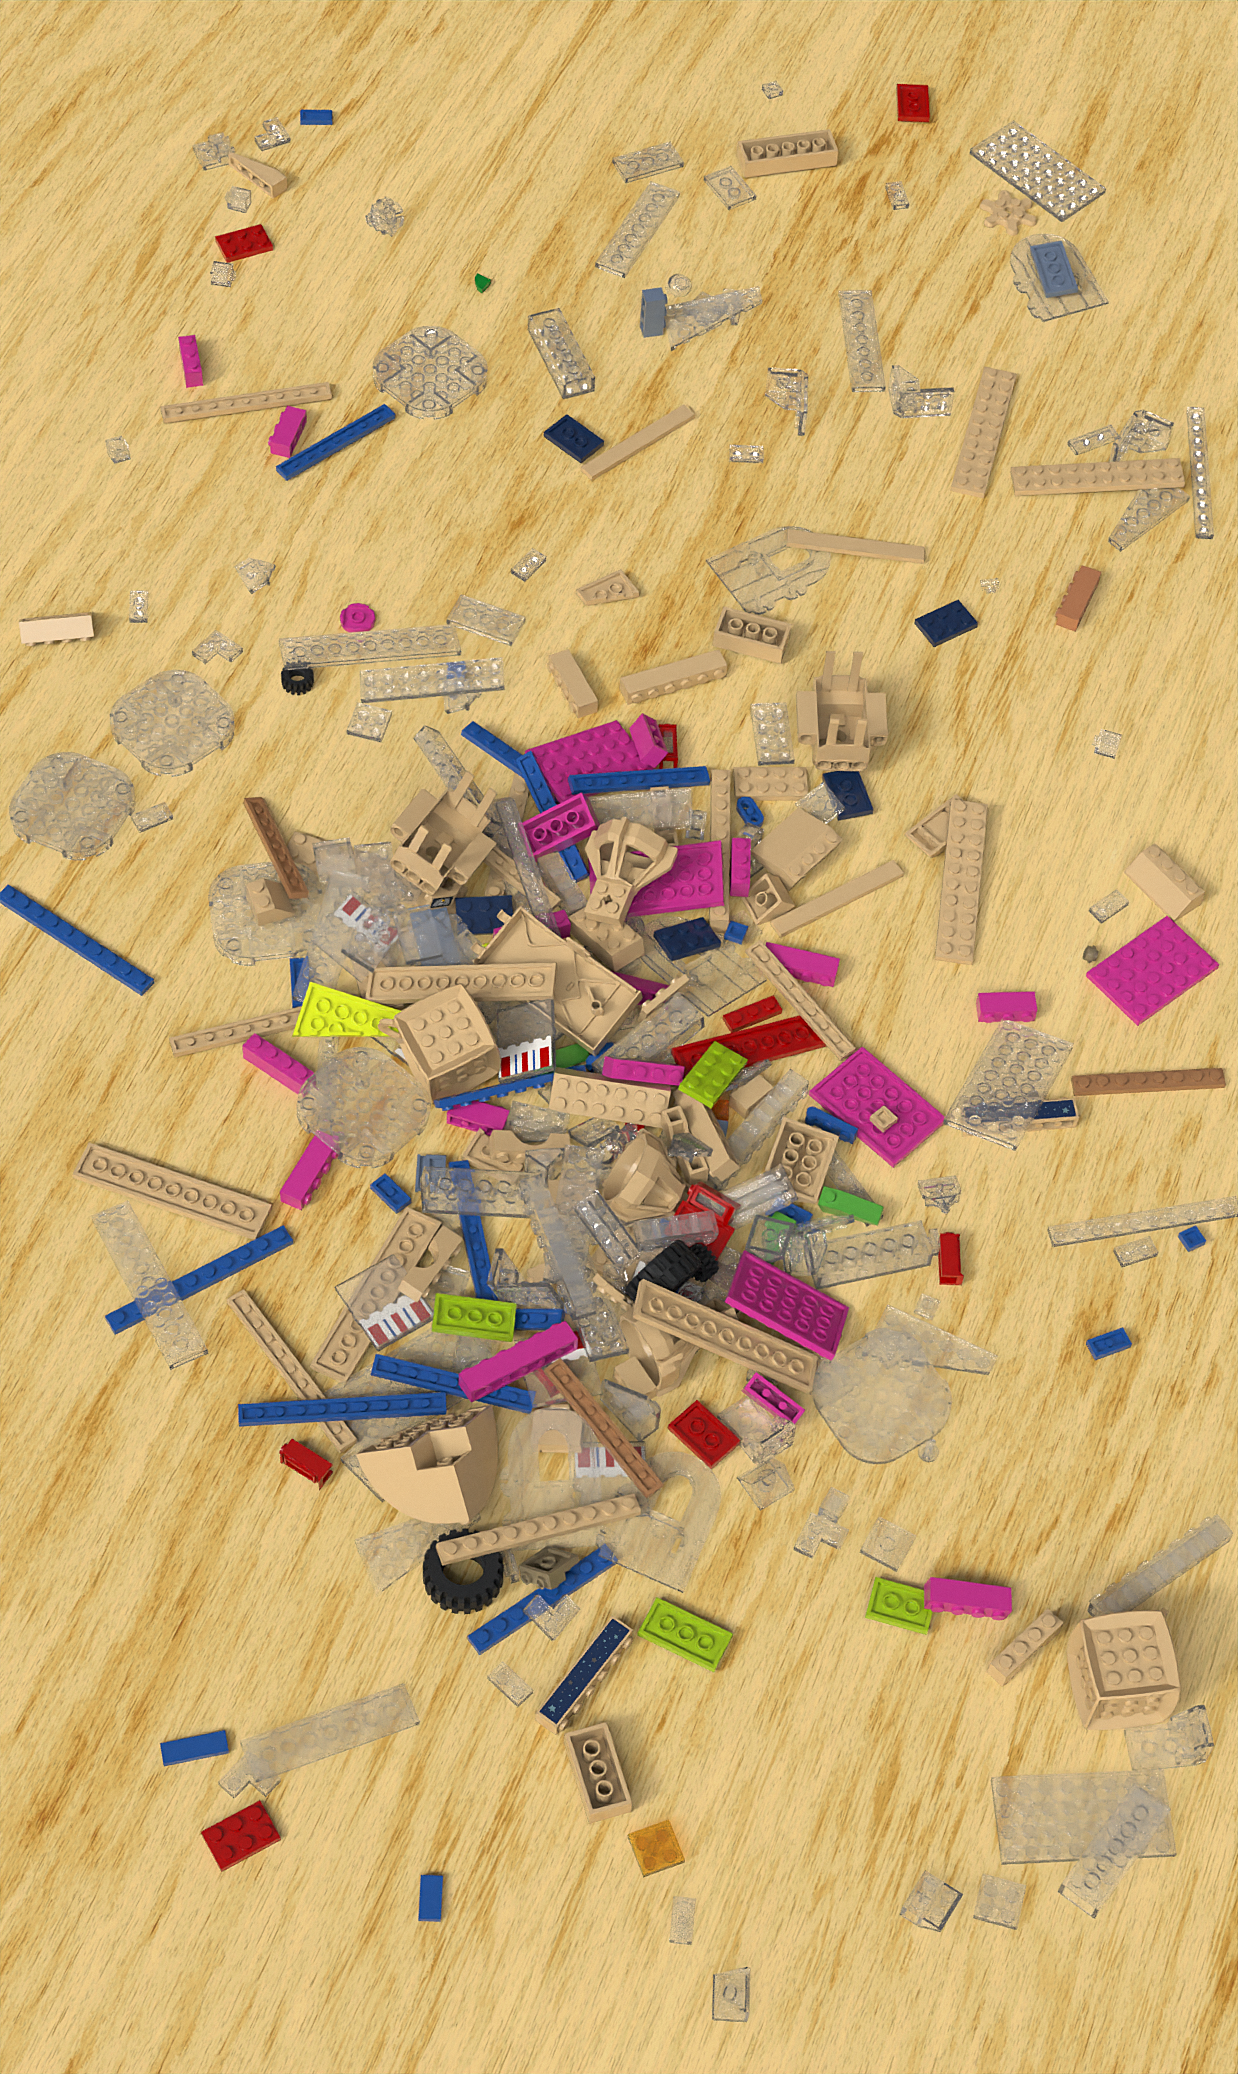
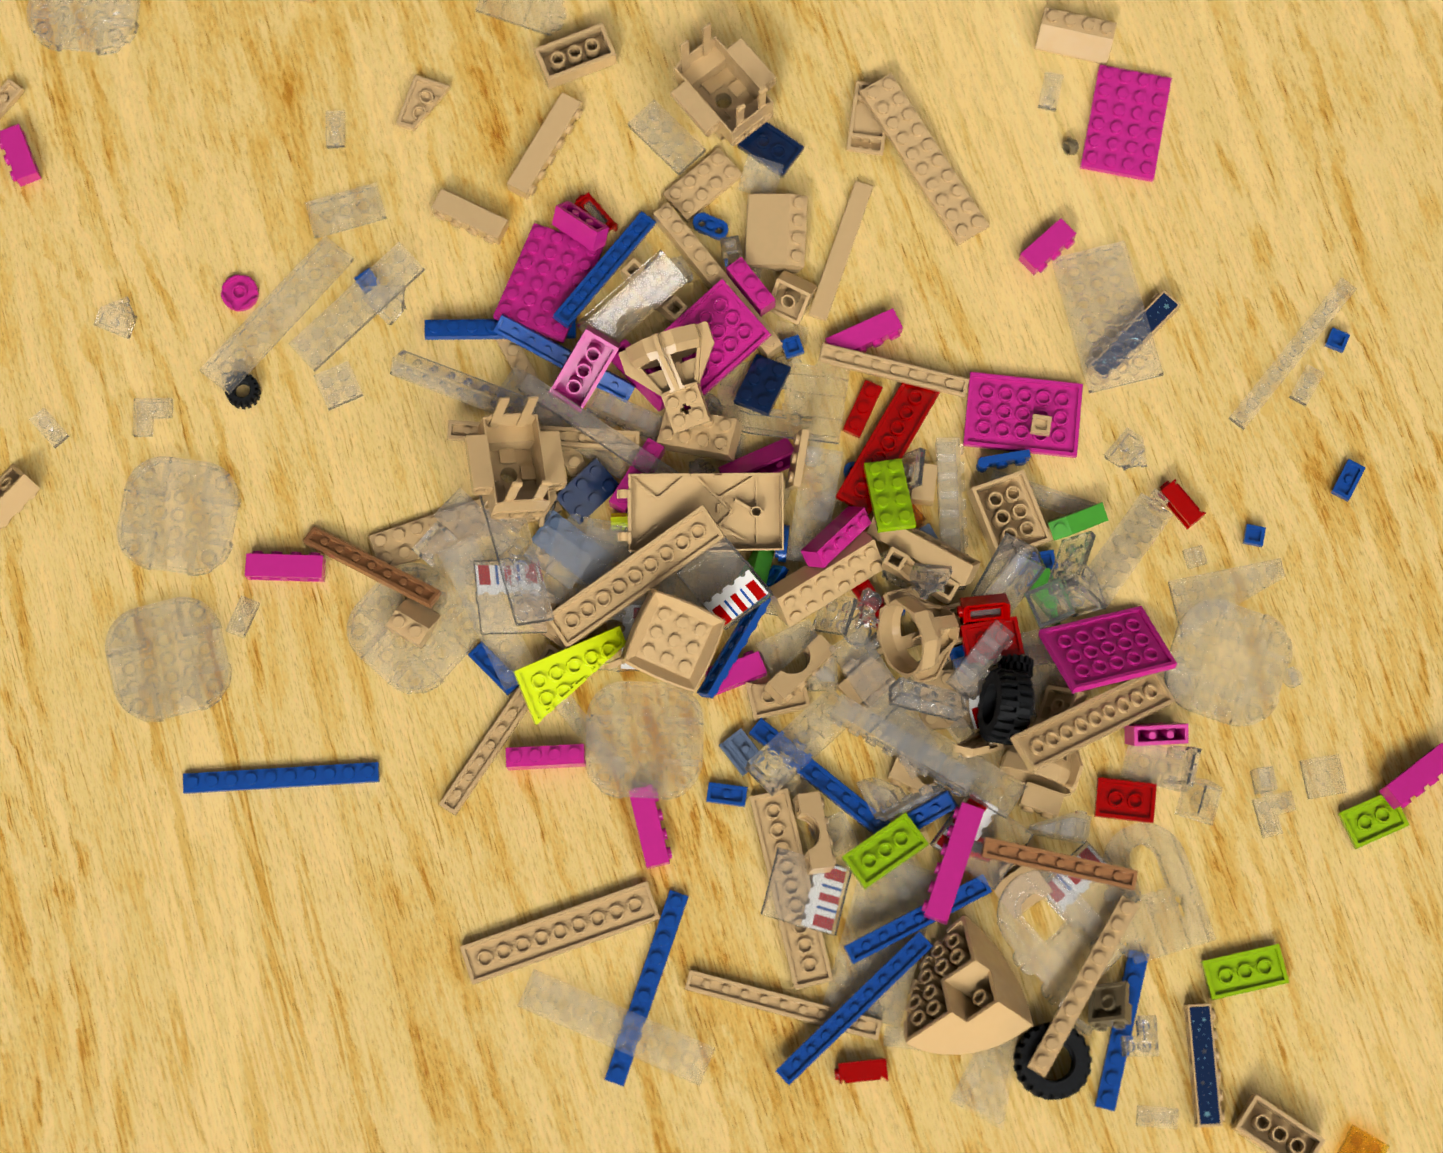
camera: 35 degrees left, 20 degrees up
(214, 807) = (285, 566): none -> dark pink brick
(335, 442) = (68, 134): blue plate -> none
(990, 1325) = (1254, 535): none -> blue plate
(1148, 1081) = (1199, 227): medium nougat plate -> none

